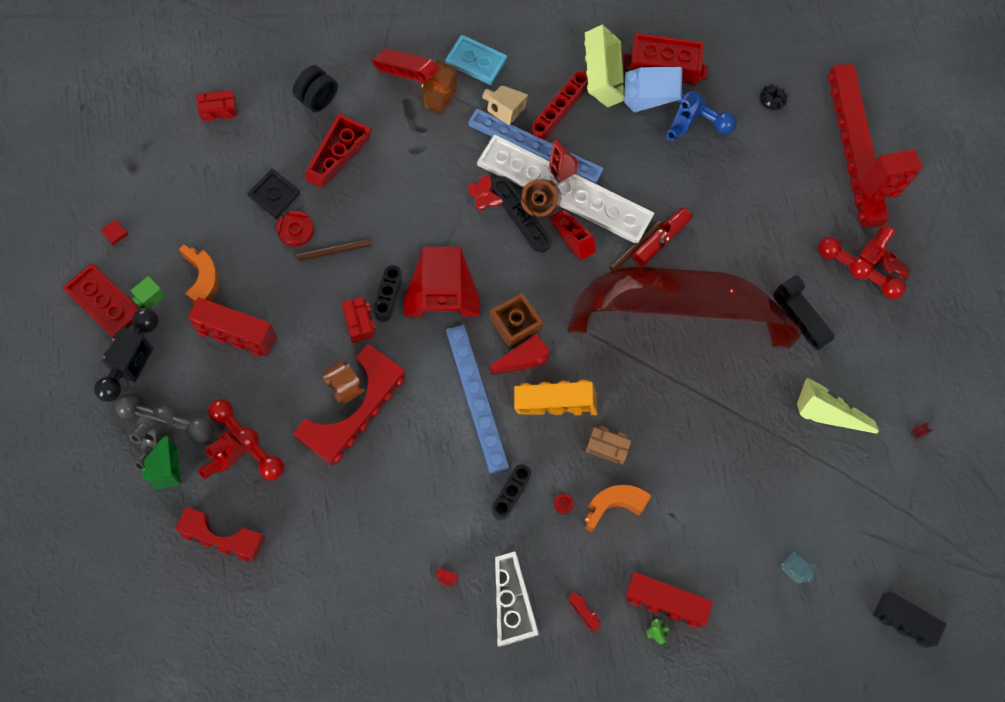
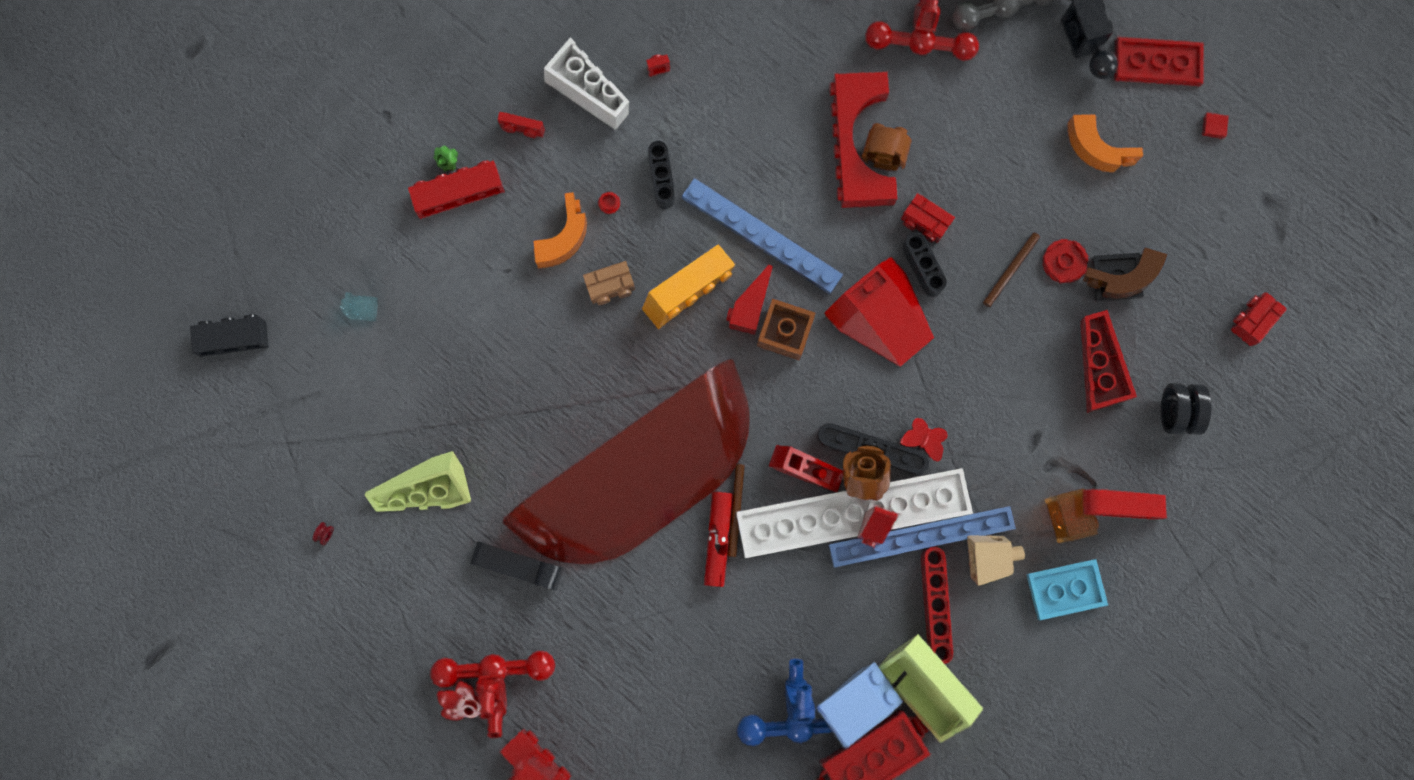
camera: 145 degrees right, 10 degrees up
(147, 293) = (1128, 94): bright green brick -> none
(232, 327) = (1025, 117): red brick -> none
(266, 174) = (1129, 284): none -> reddish brown arch

